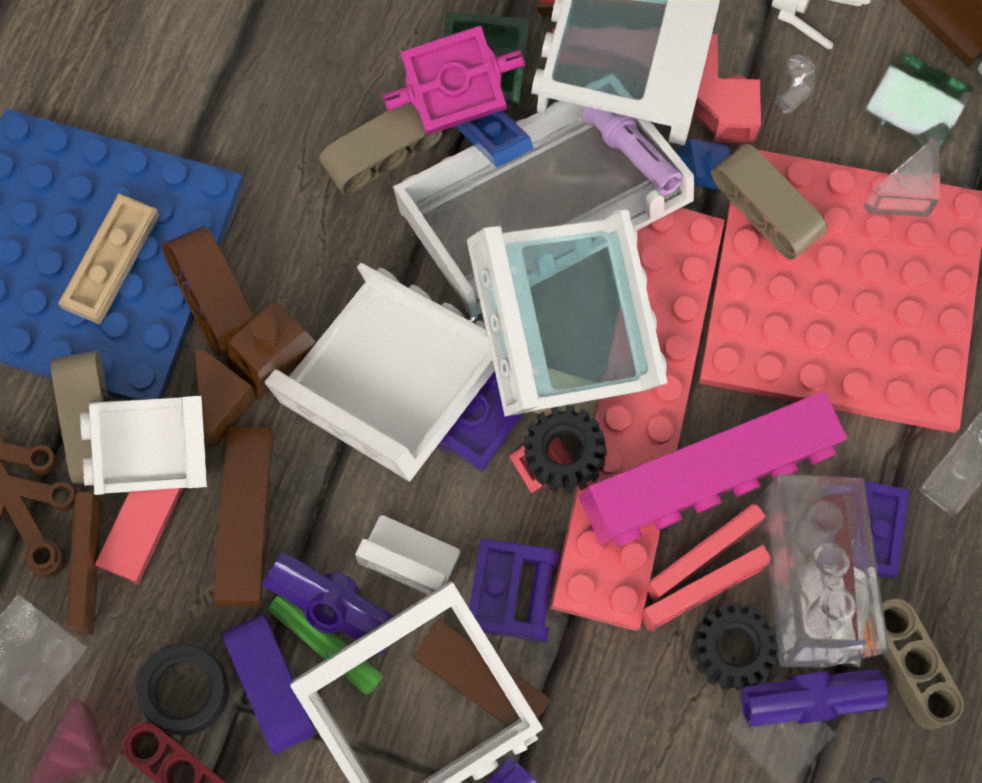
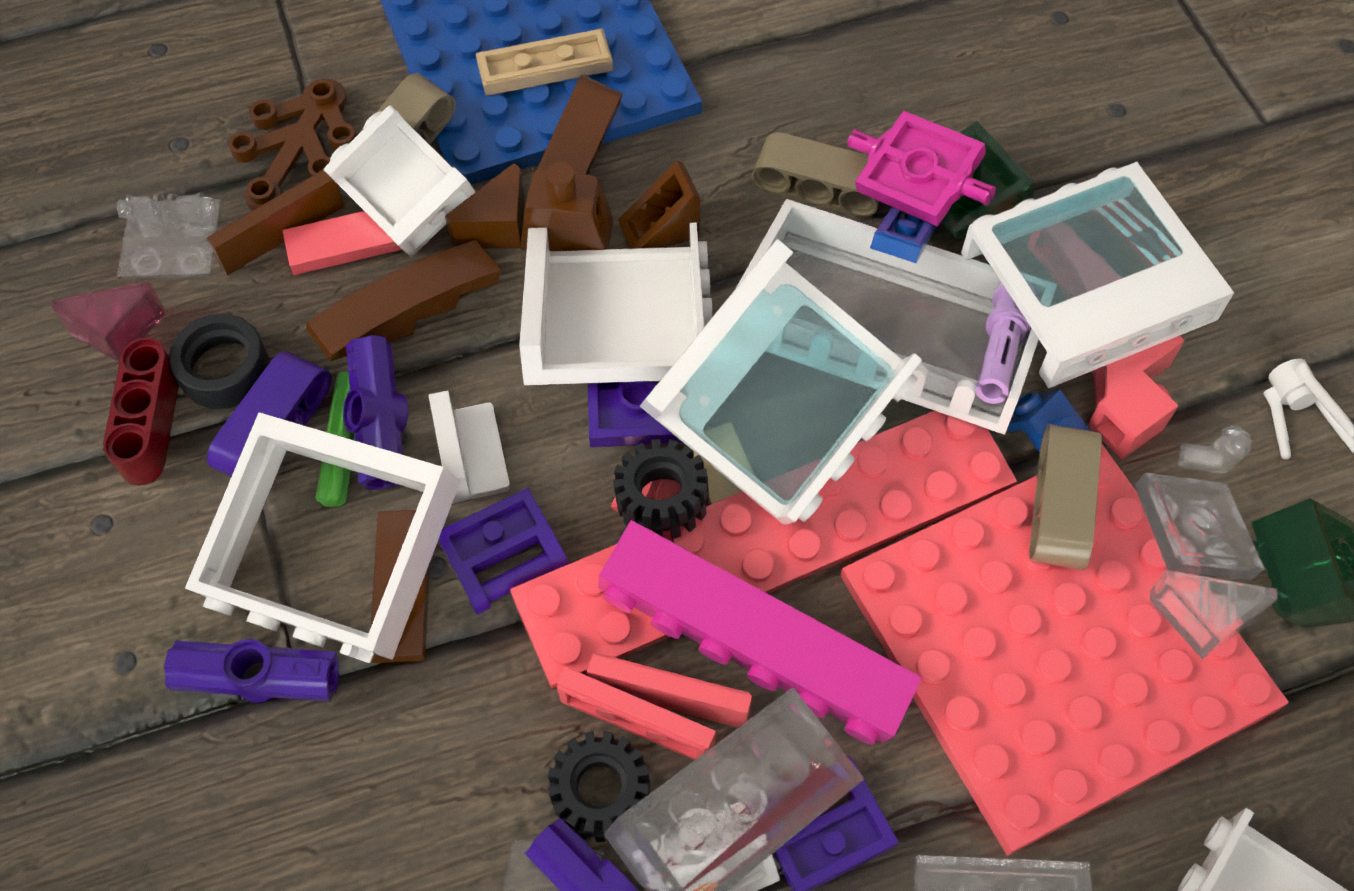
camera: 55 degrees right, 10 degrees down
(324, 278) = (663, 212): none -> reddish brown slope
(845, 142) = (1198, 527): none -> clear plate

